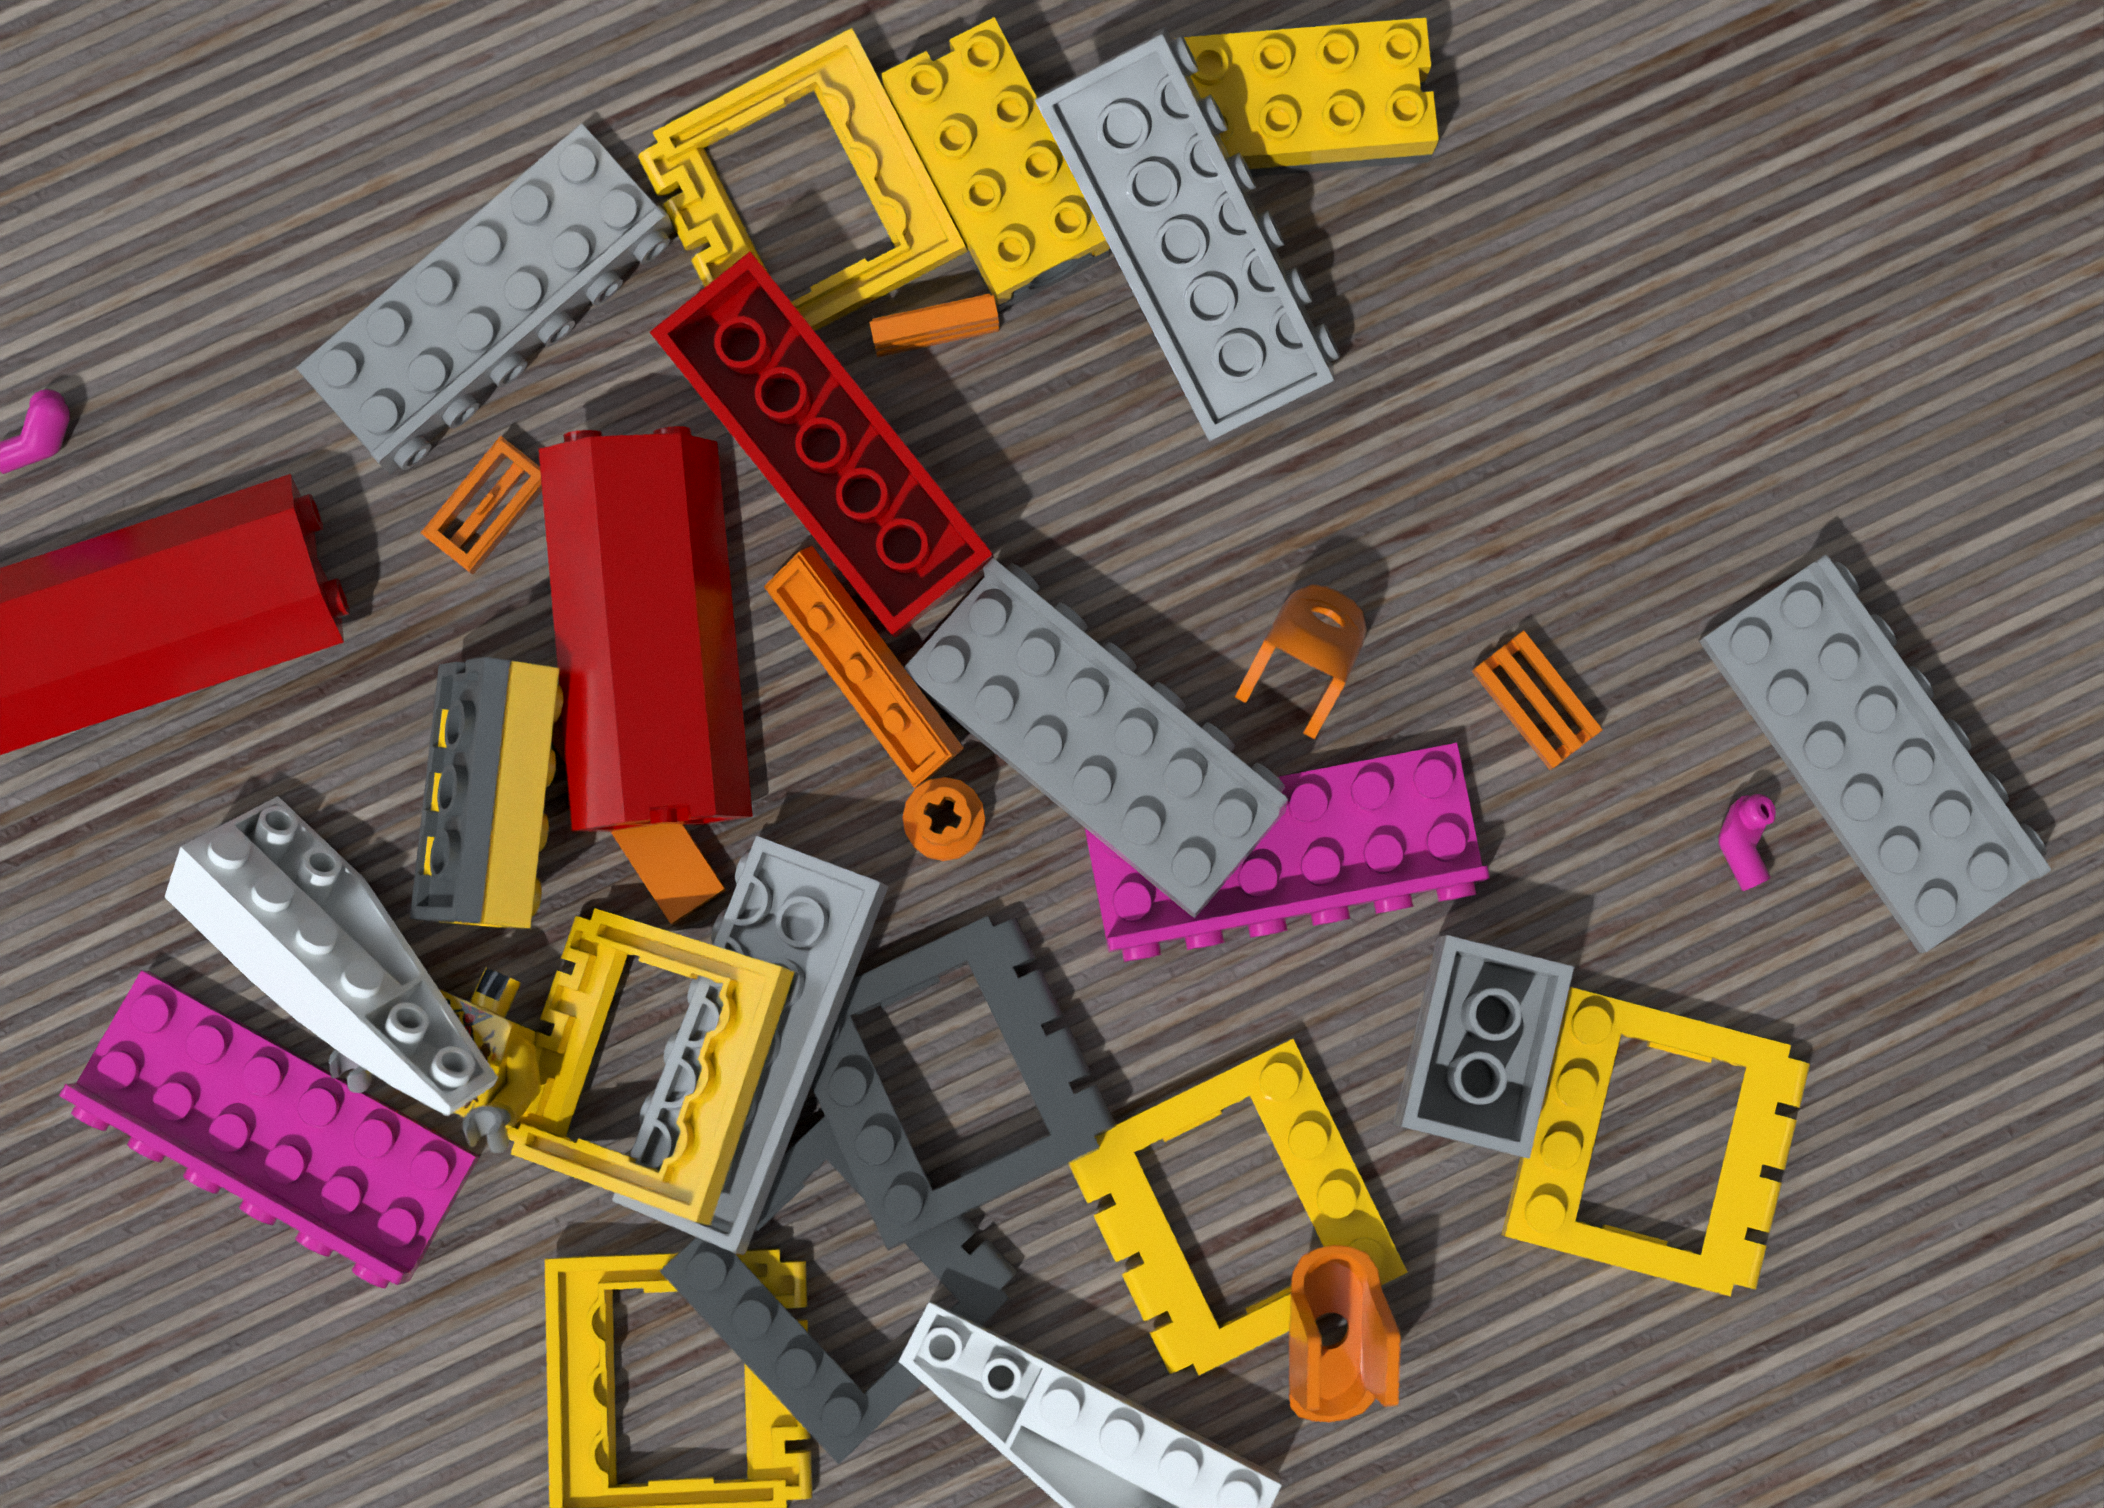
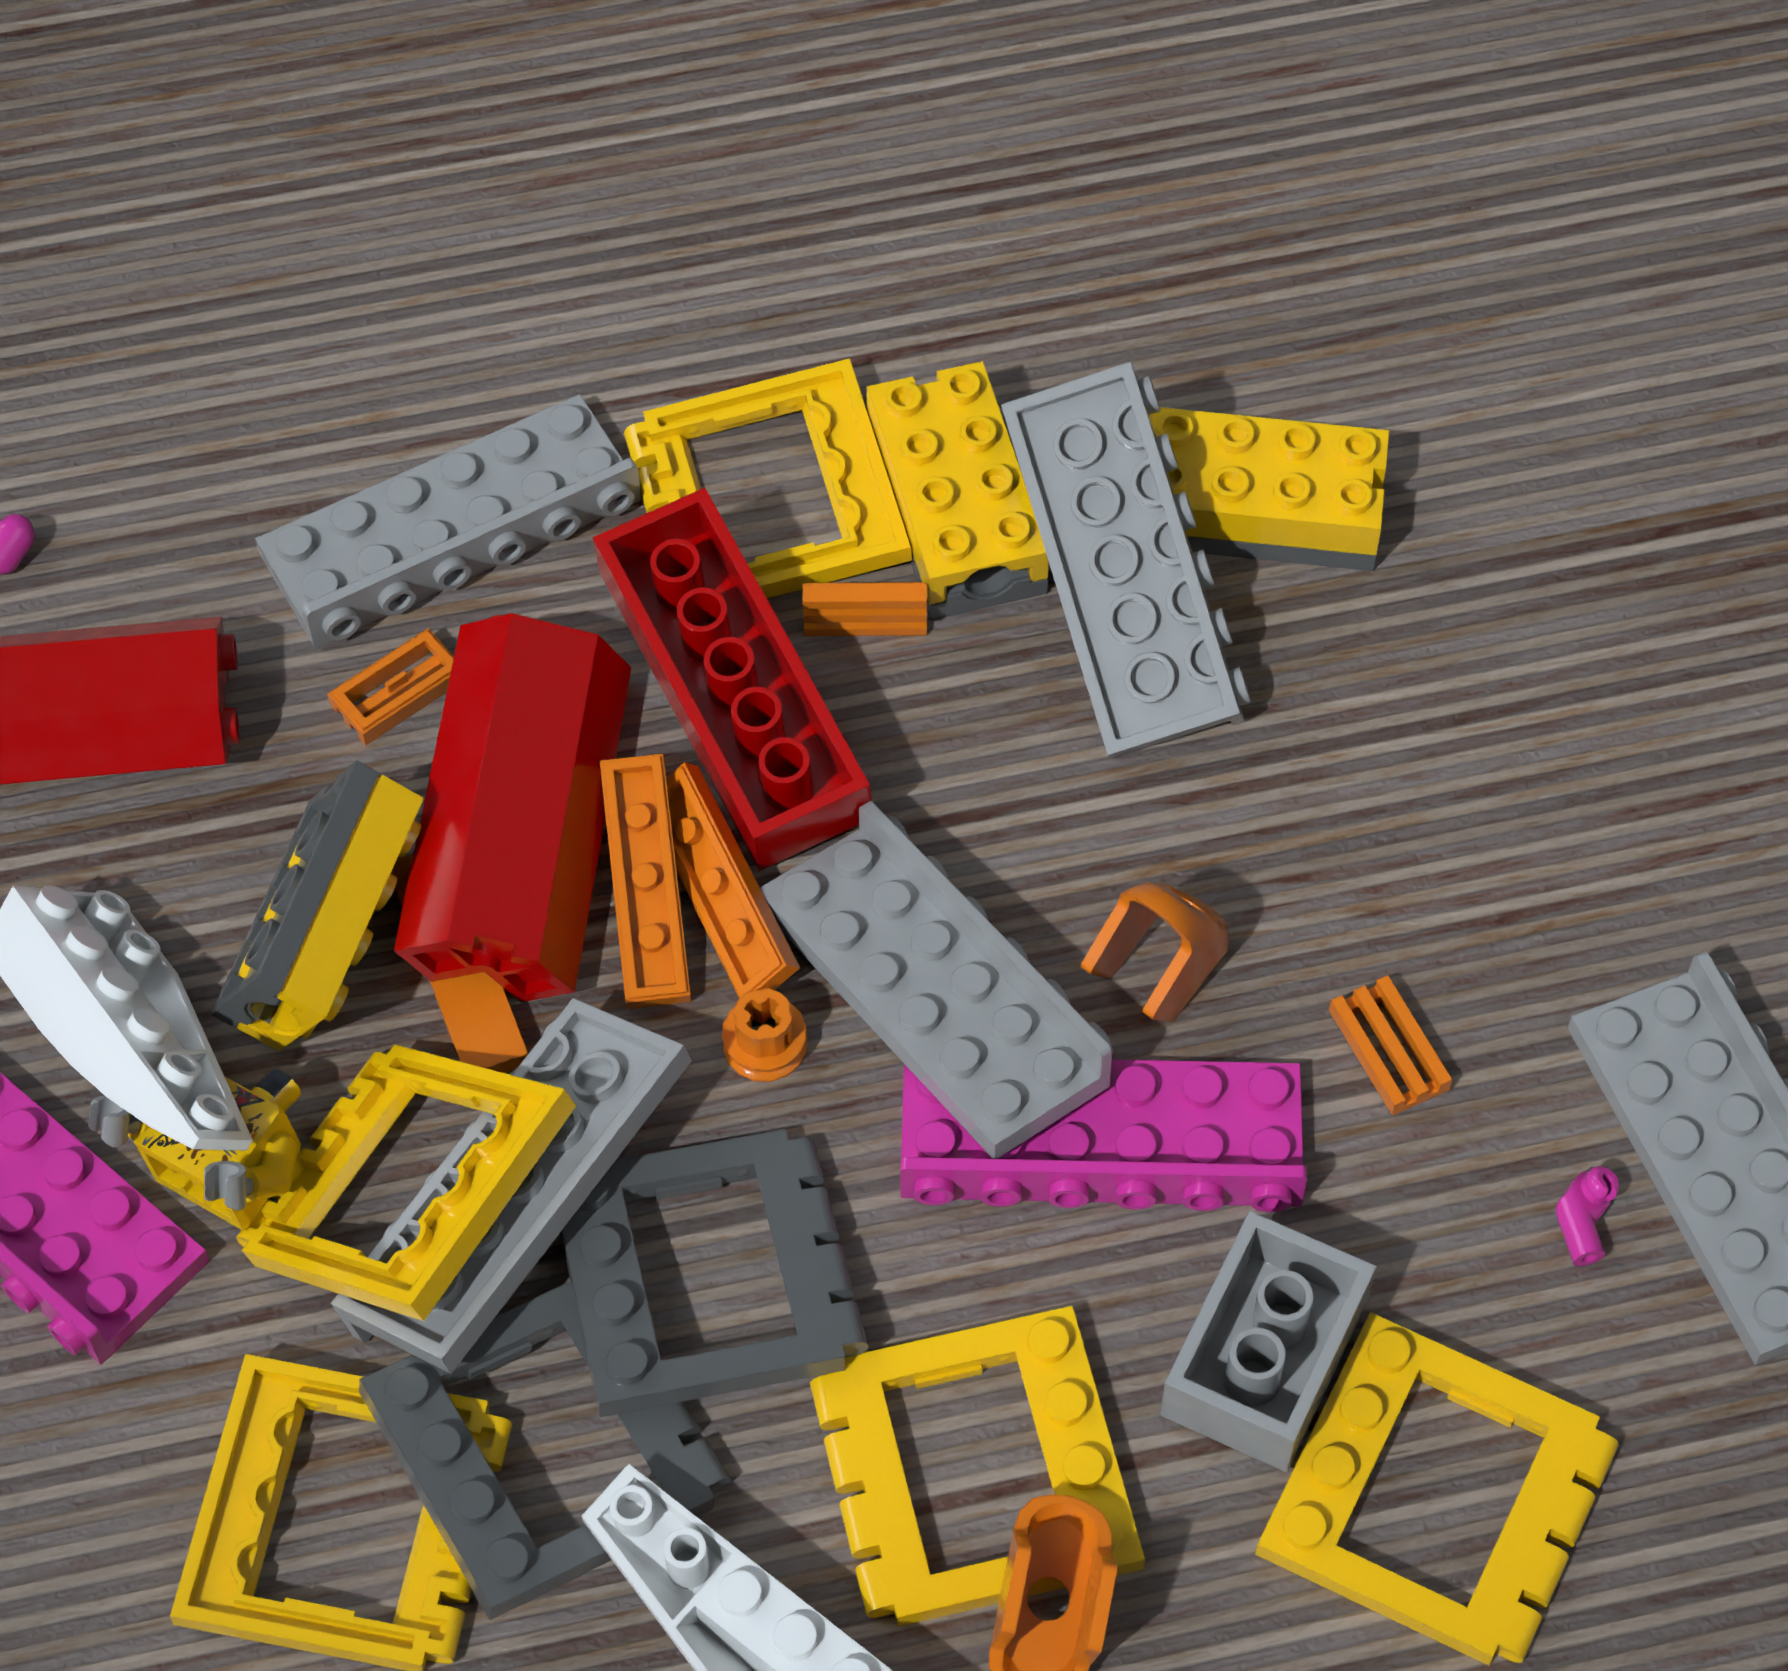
camera: 15 degrees right, 25 degrees down
(790, 681) = (645, 881): none -> orange tile

